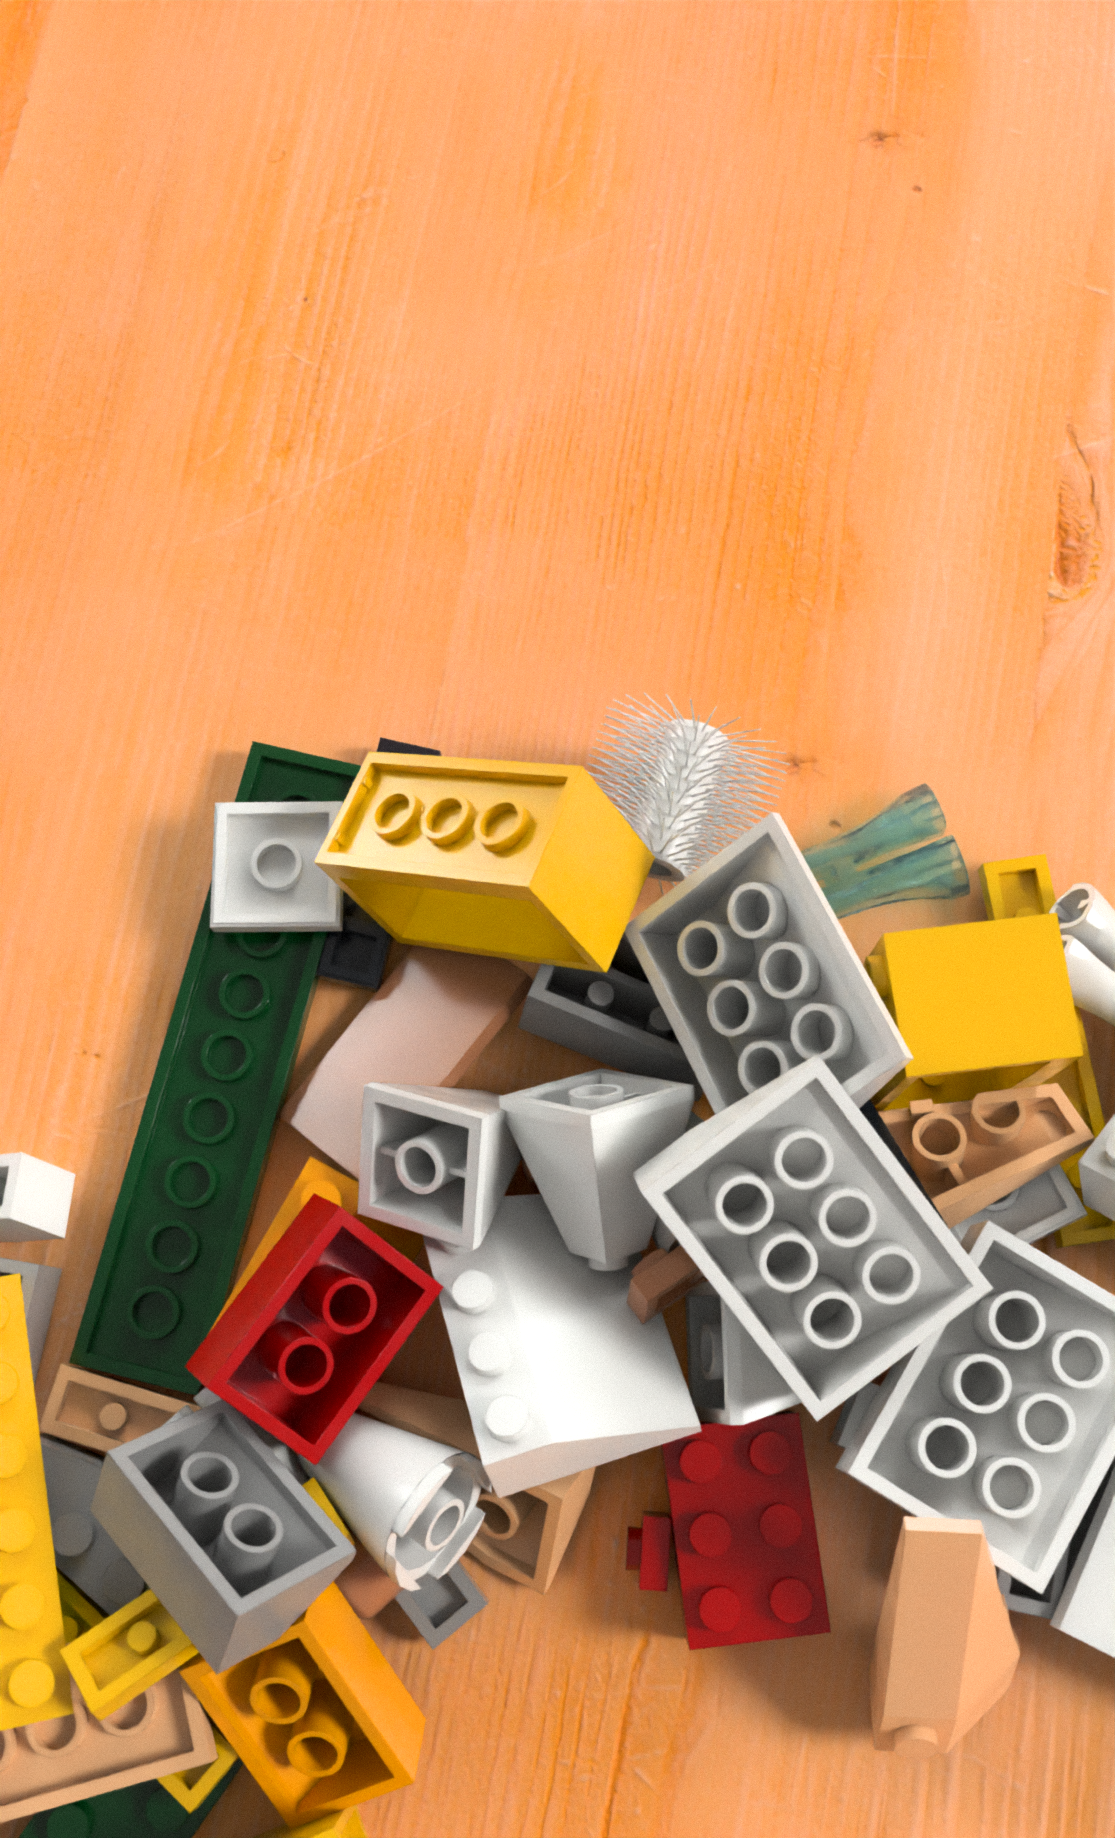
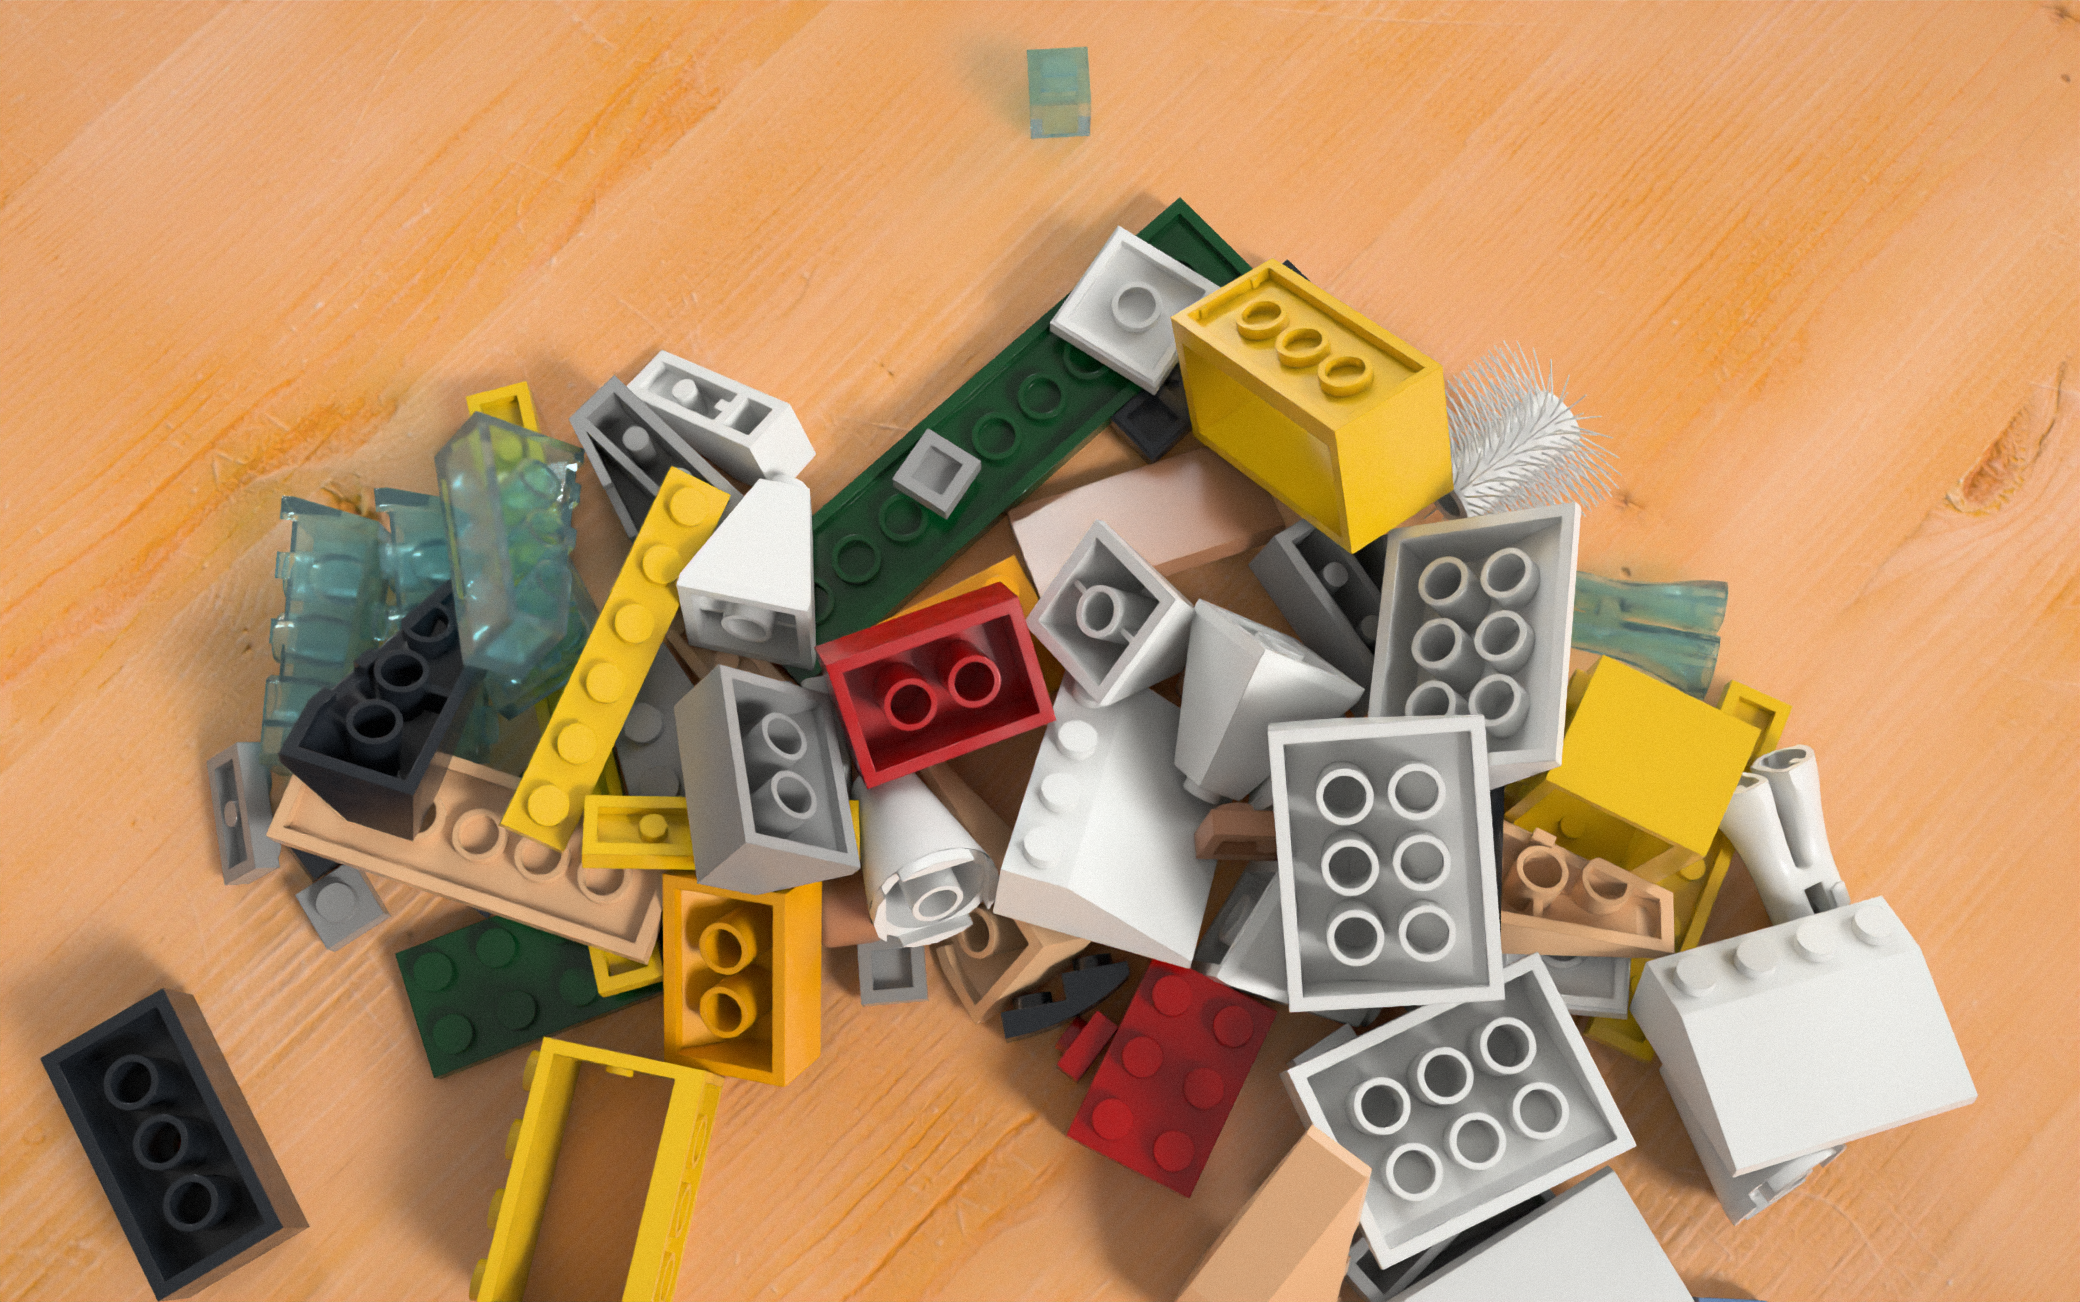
camera: 30 degrees right, 0 degrees up
(87, 714) = (1059, 92): none -> clear light blue brick
(91, 1328) = (755, 579): none -> white slope
(195, 1126) = (937, 473): none -> light grey plate
(618, 1501) = (1084, 989): none -> black slope

